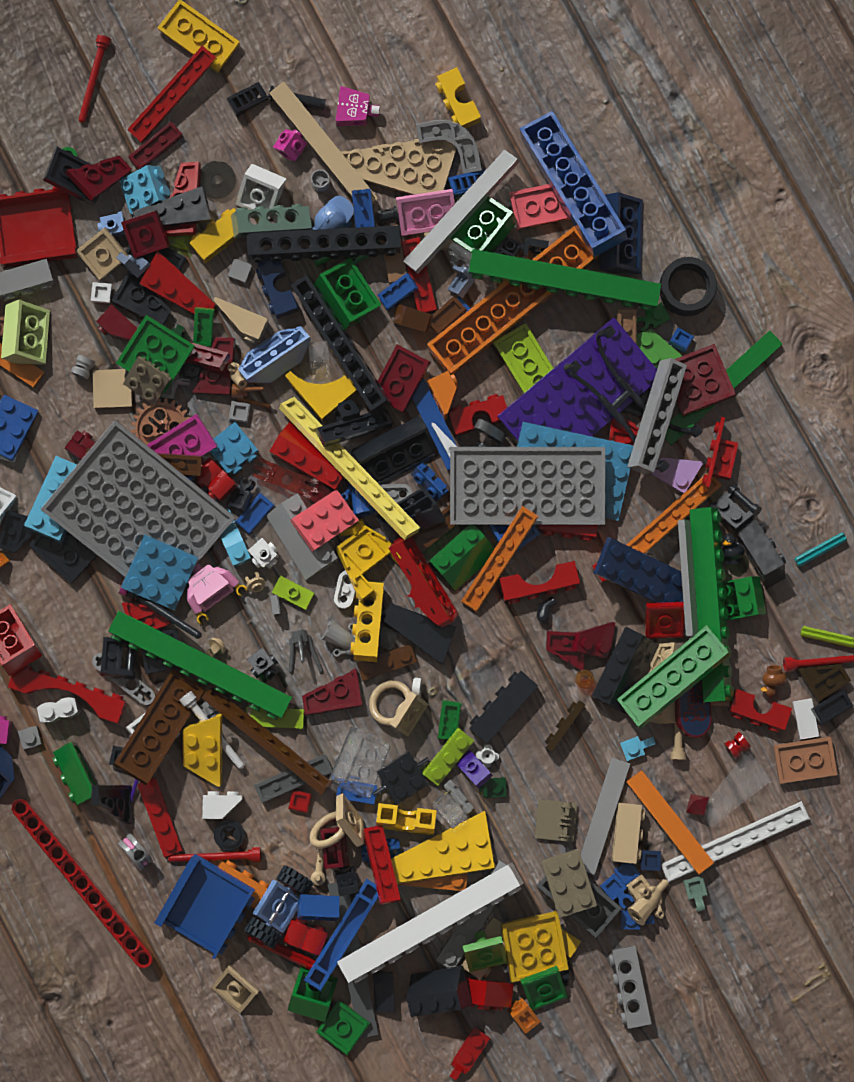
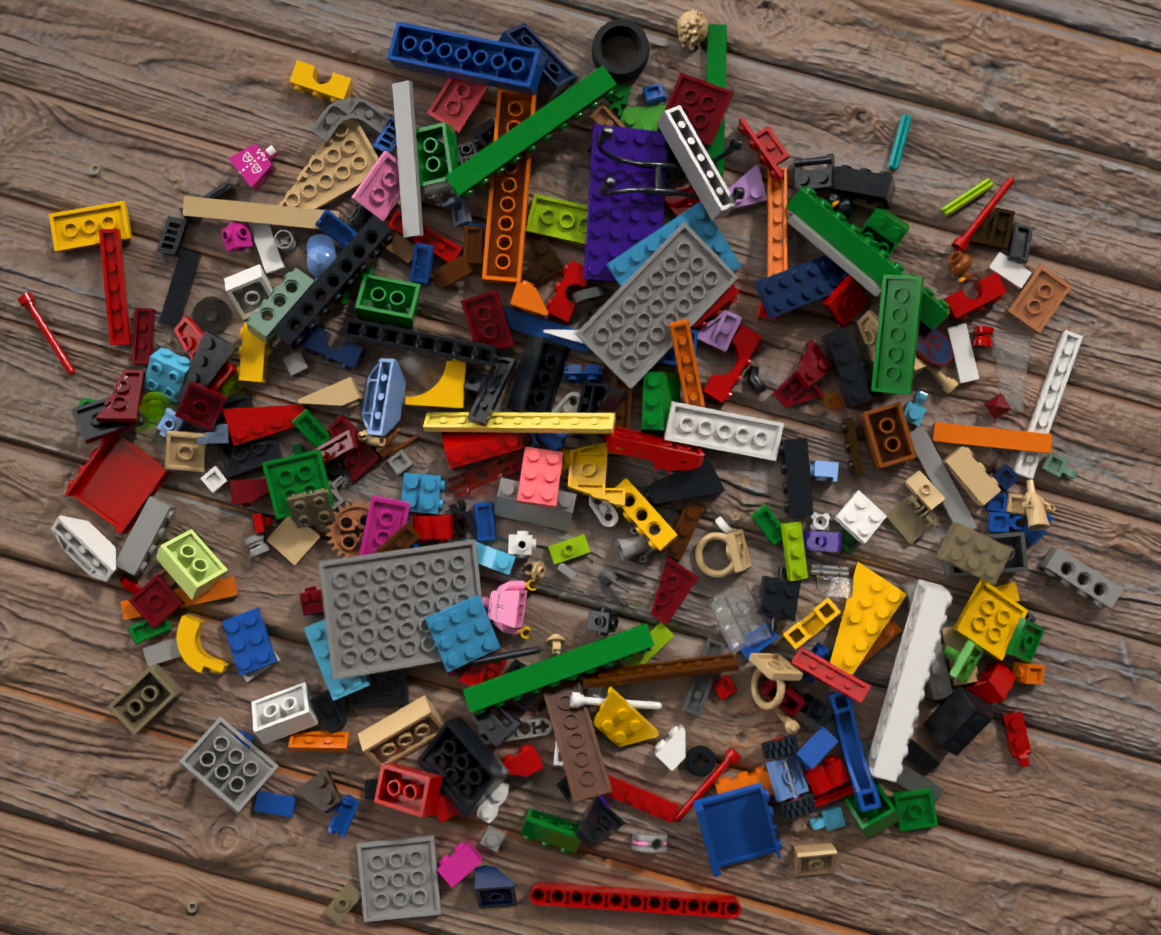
camera: 45 degrees left, 5 degrees up
(46, 598) = (401, 732): none -> tan slope
(67, 663) = (466, 765): none -> black slope
(100, 354) = (259, 523): none -> red tile
(115, 200) = (154, 404): none -> clear neon green plate
(215, 138) = (180, 287): none -> black tile
(277, 972) = (831, 819): none -> medium azure plate
(302, 173) = (266, 247): none -> white tile
(482, 382) = (547, 265): none -> dark brown plate
(485, 621) = (723, 431): none -> white plate
(518, 781) = (860, 517): none -> white plate
(527, 721) = (823, 470): none -> light blue brick
(556, 550) = (720, 331): none -> lavender wing
(583, 810) = (924, 490): none -> tan plate
(596, 743) = (887, 435): none -> dark orange brick
(711, 742) = (962, 353): none -> white tile
(754, 322) = (692, 29): none -> tan hair

